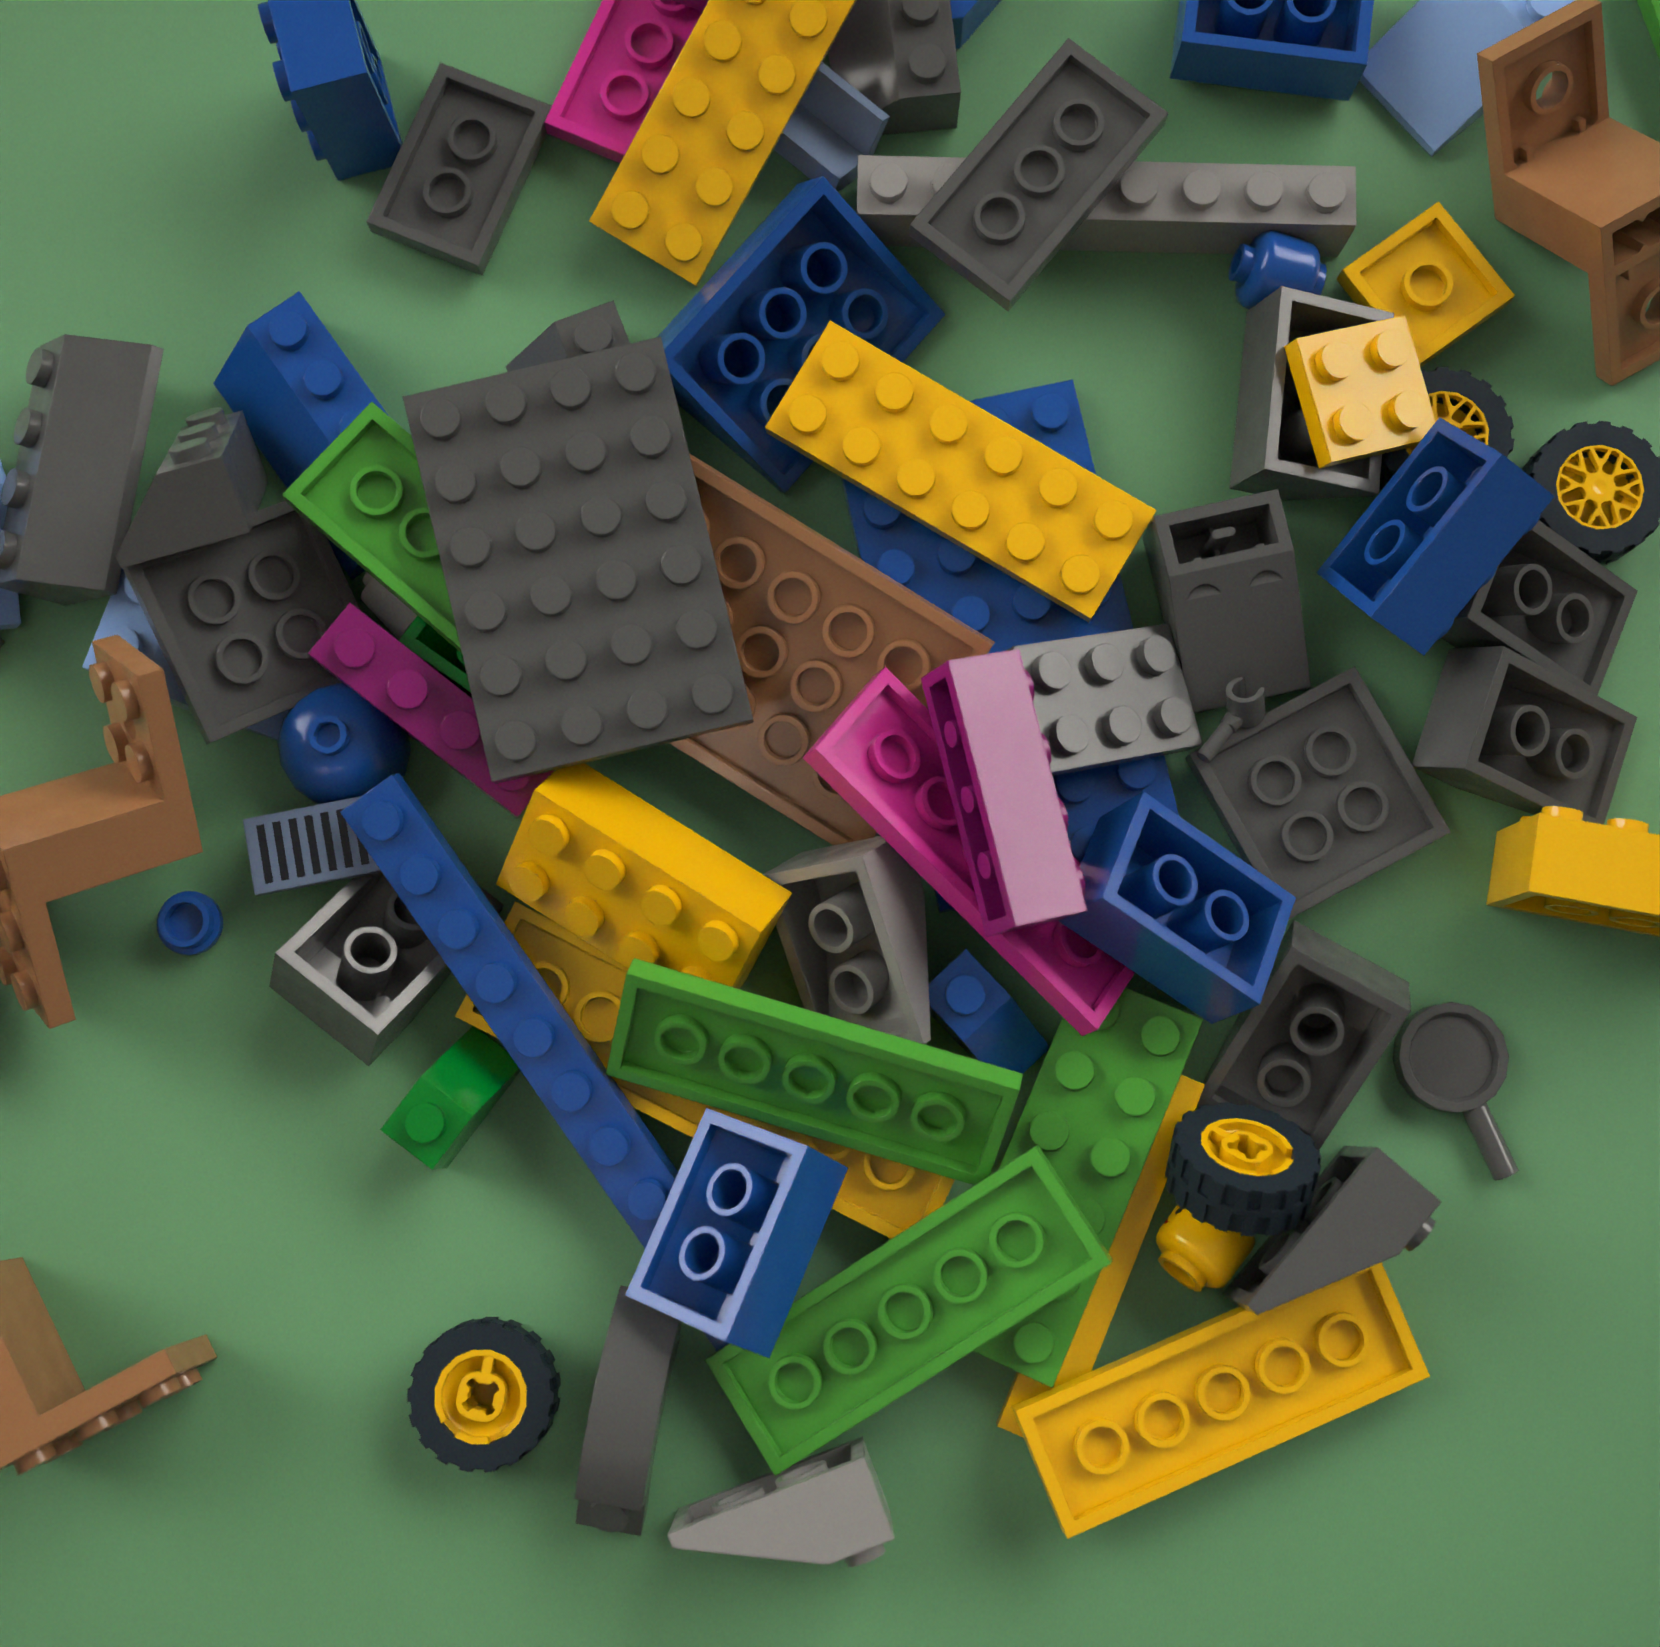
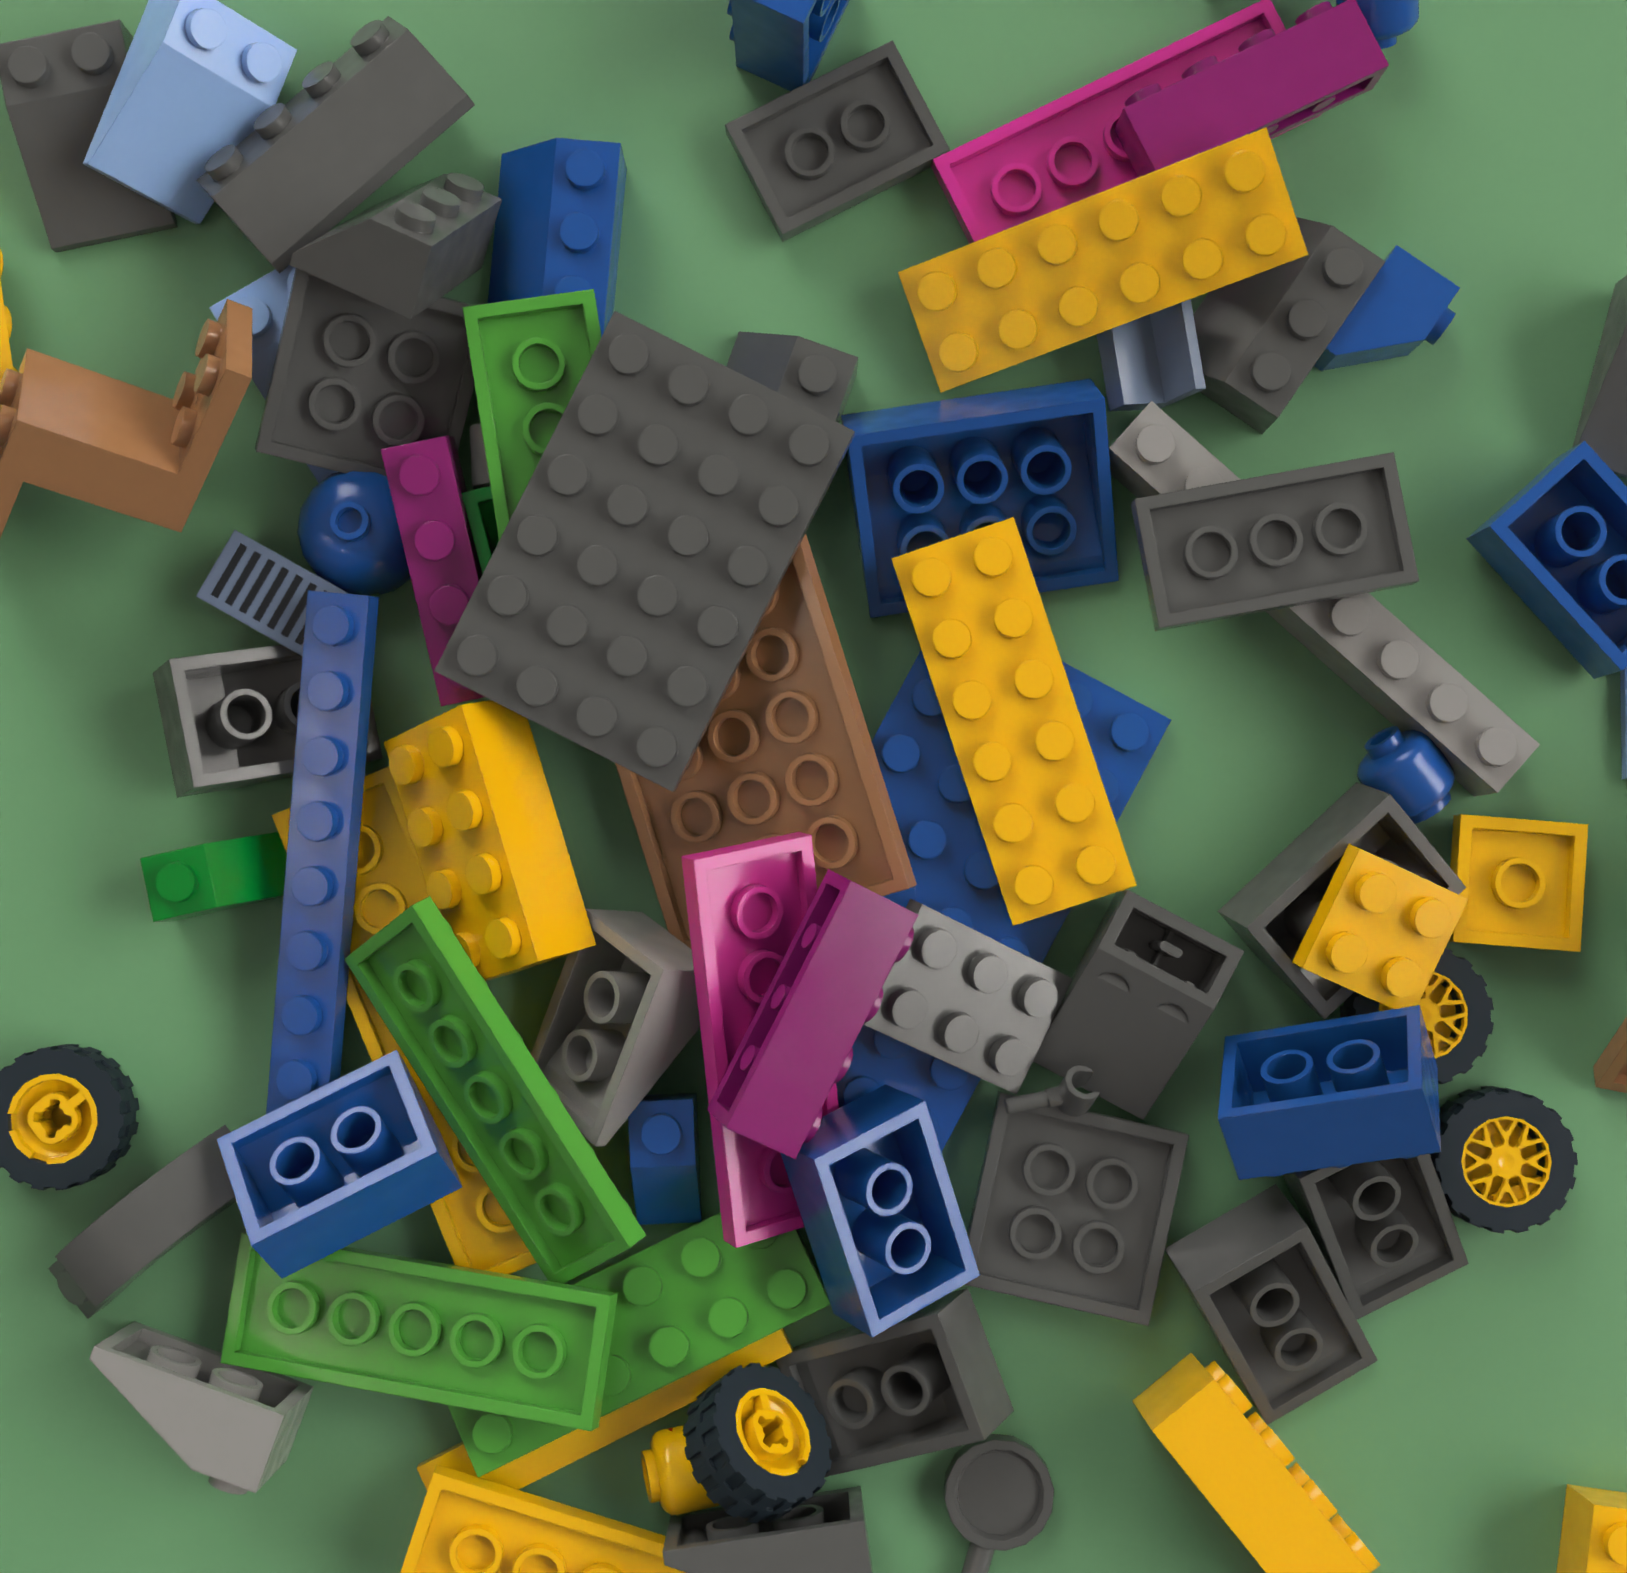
camera: 35 degrees right, 5 degrees up
(189, 923) = (135, 570): blue plate -> none

